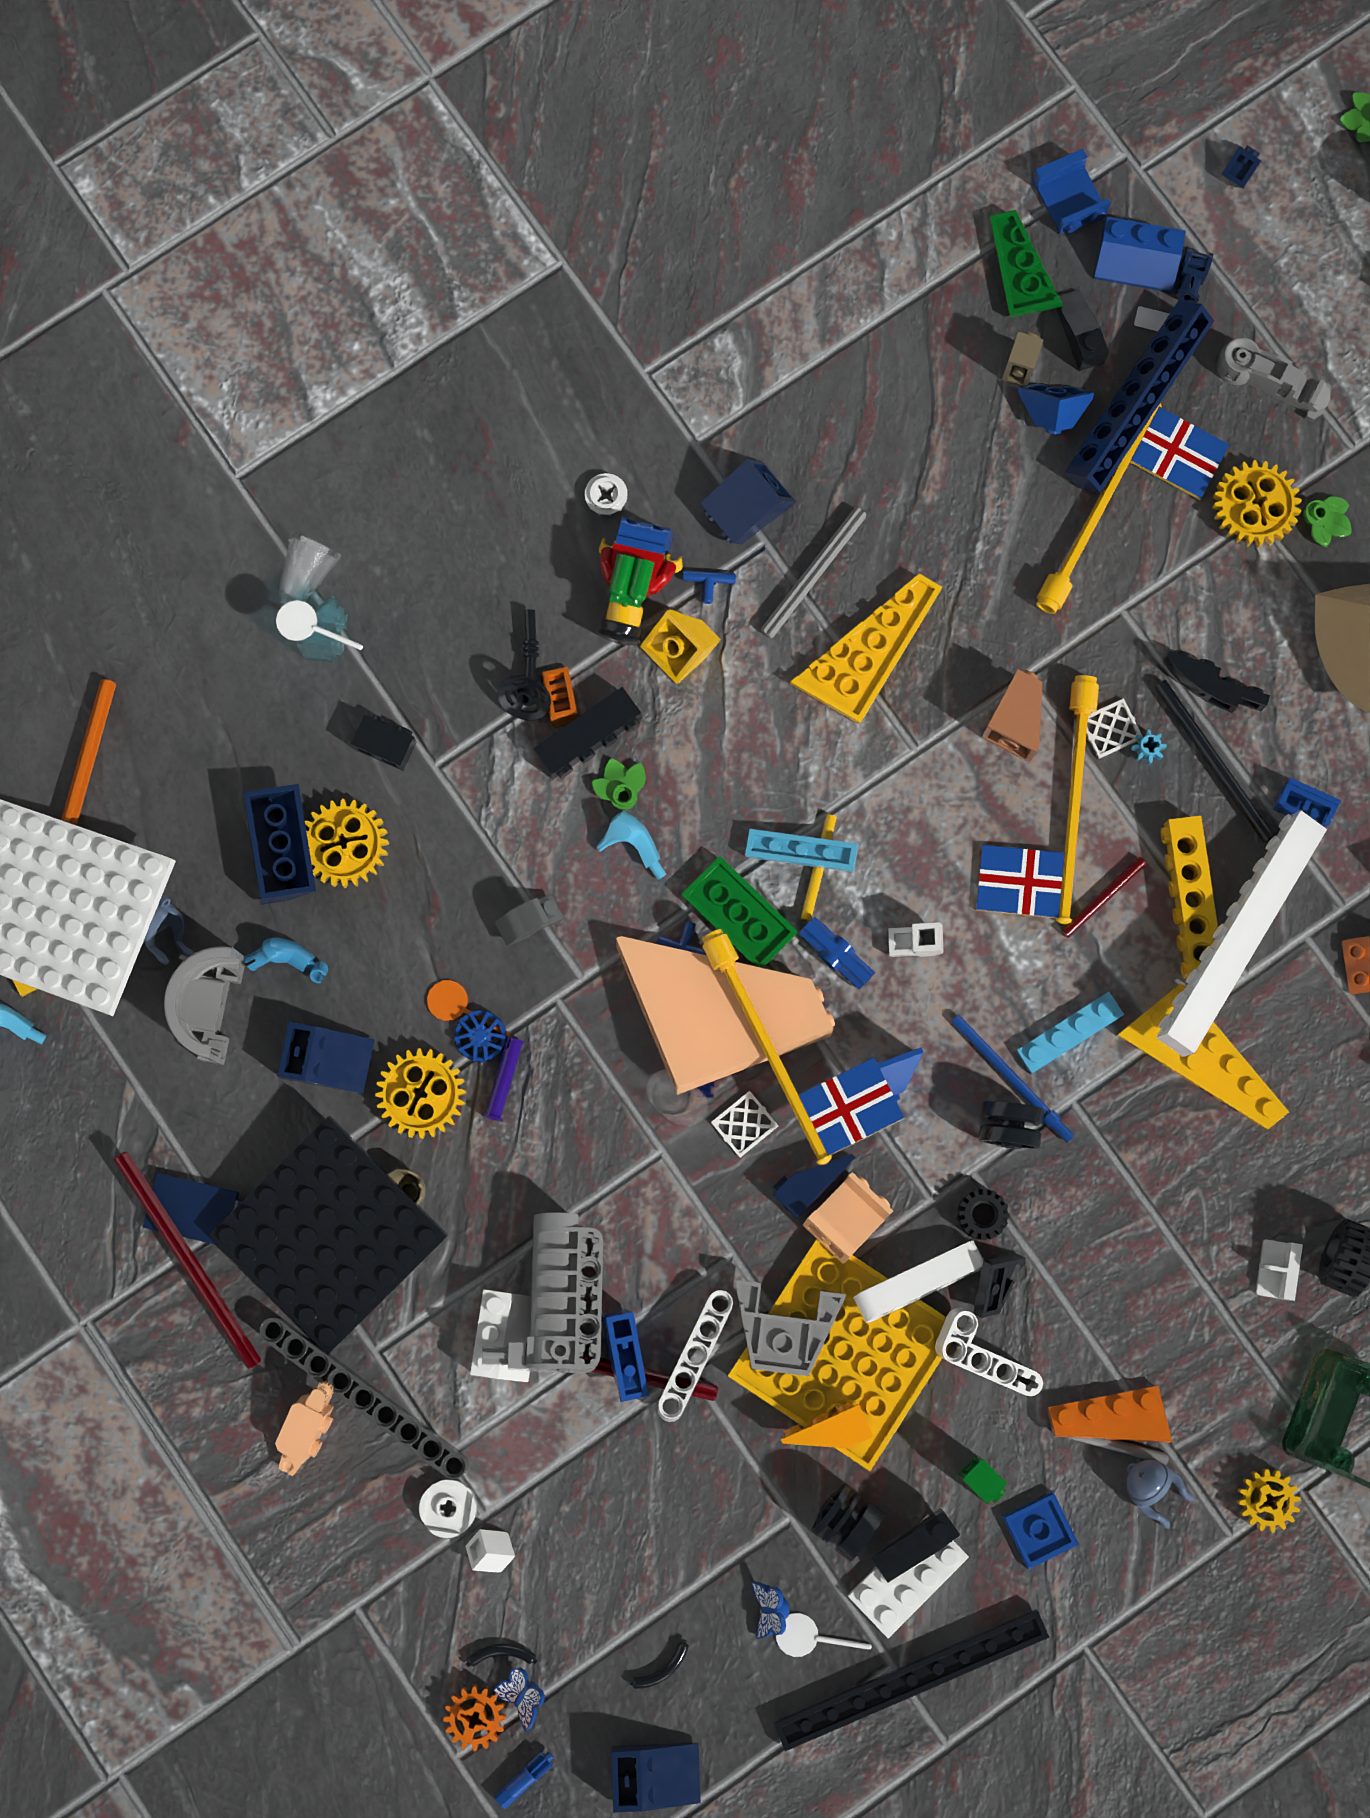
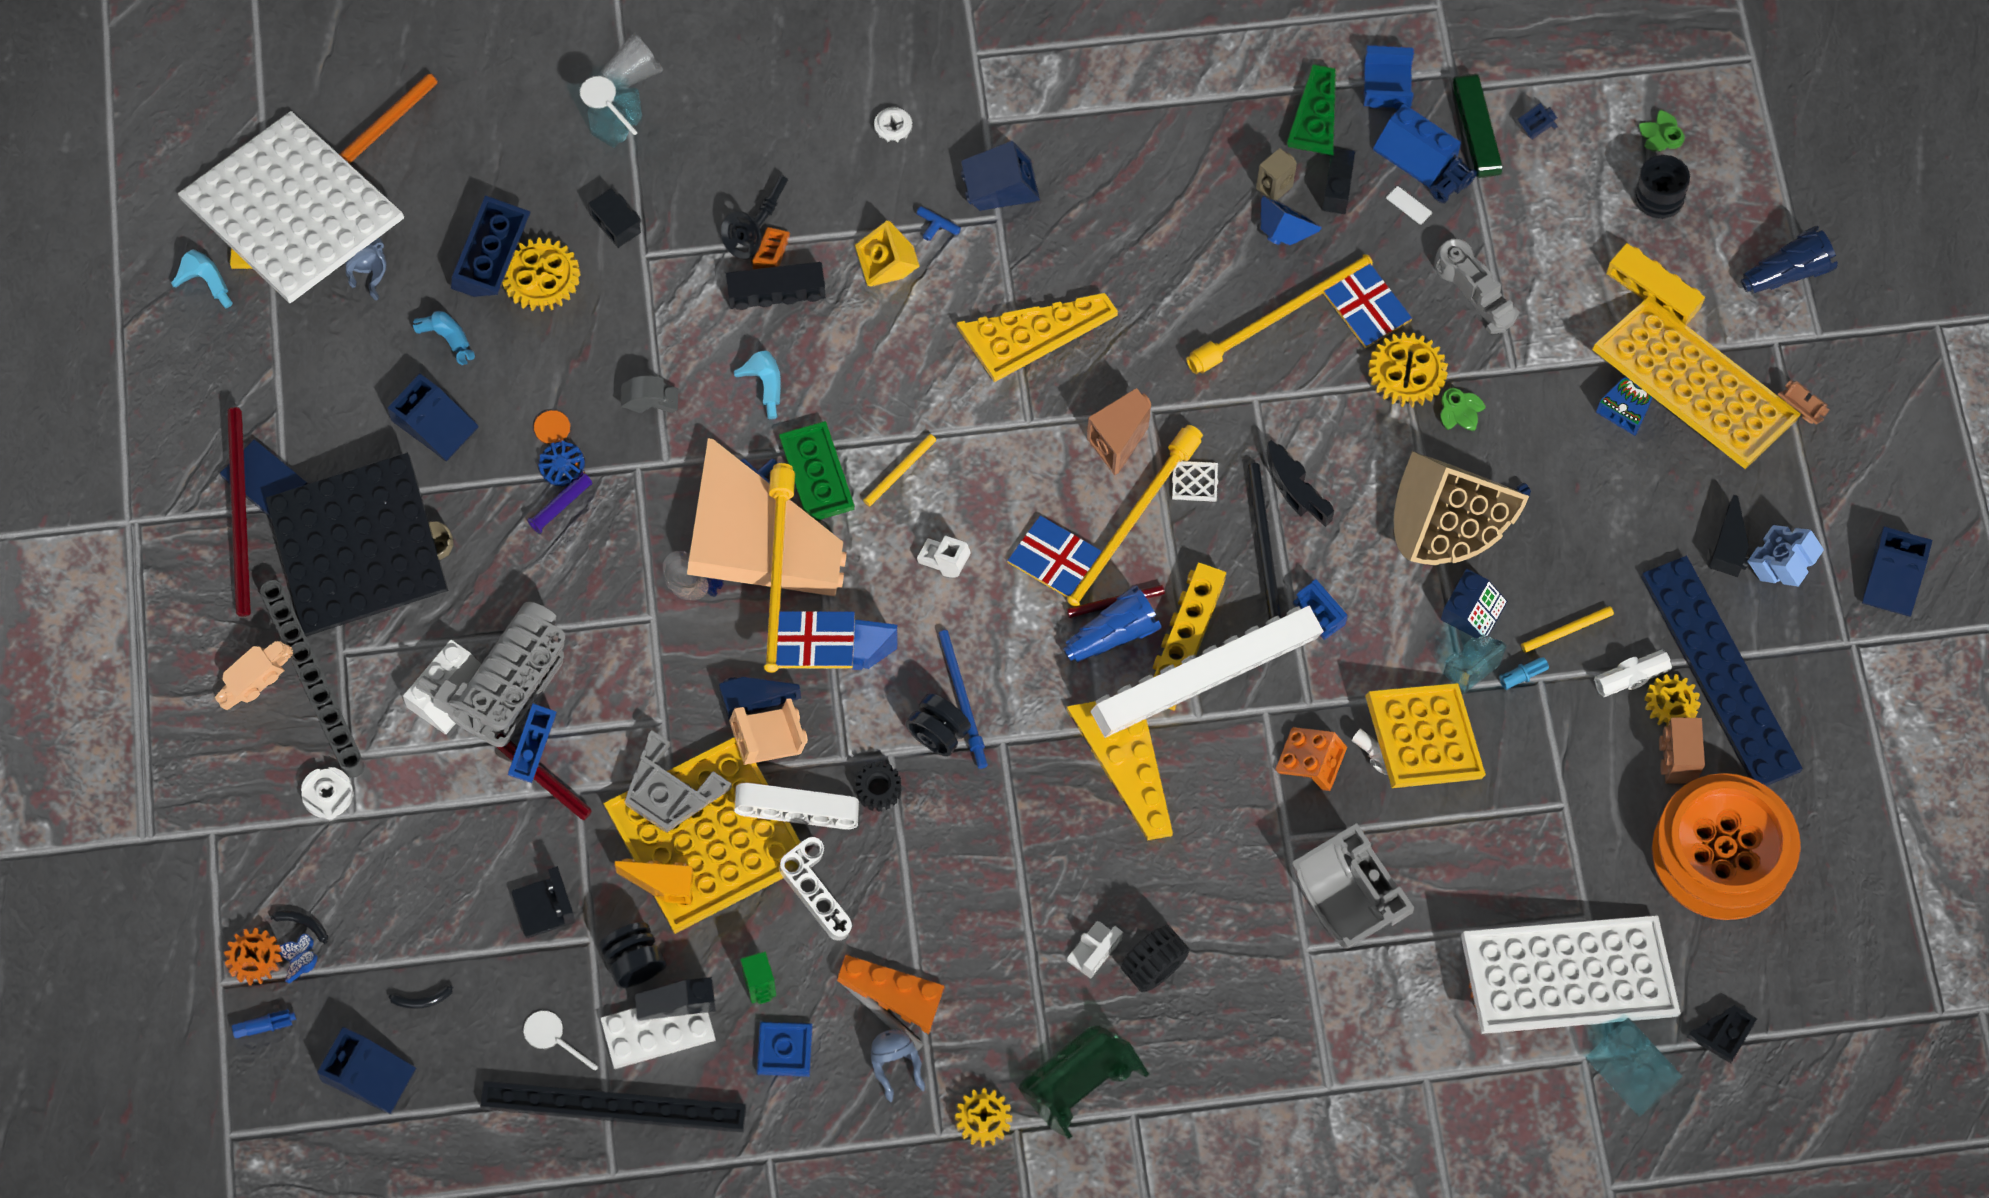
camera: 25 degrees right, 15 degrees down
(199, 1001) = (359, 332): light grey piece -> none
(398, 1081) = (501, 496): yellow gear -> none
(490, 1551) = (340, 840): white panel -> none
(619, 781) = (780, 333): bright green plate -> none
(634, 571) = (878, 181): piece -> none
(702, 1343) = (580, 782): white beam -> none
(727, 1511) = (543, 905): none -> black bracket
(761, 1110) = (727, 613): white window -> none
(774, 1610) = (535, 996): blue animal -> none
(801, 850) = (892, 447): medium azure plate -> none
(813, 572) = (1022, 255): light grey axle -> none
(836, 953) = (876, 537): blue piece -> none
(995, 1284) = (857, 840): black wing -> none
(1069, 1032) = (1029, 688): medium azure plate -> none
(1123, 927) = (1121, 622): none -> blue cone
(1139, 396) = (1355, 246): dark blue brick -> none
(1143, 752) = (1218, 511): medium azure gear -> none
(1185, 201) = (1477, 125): none -> dark green beam

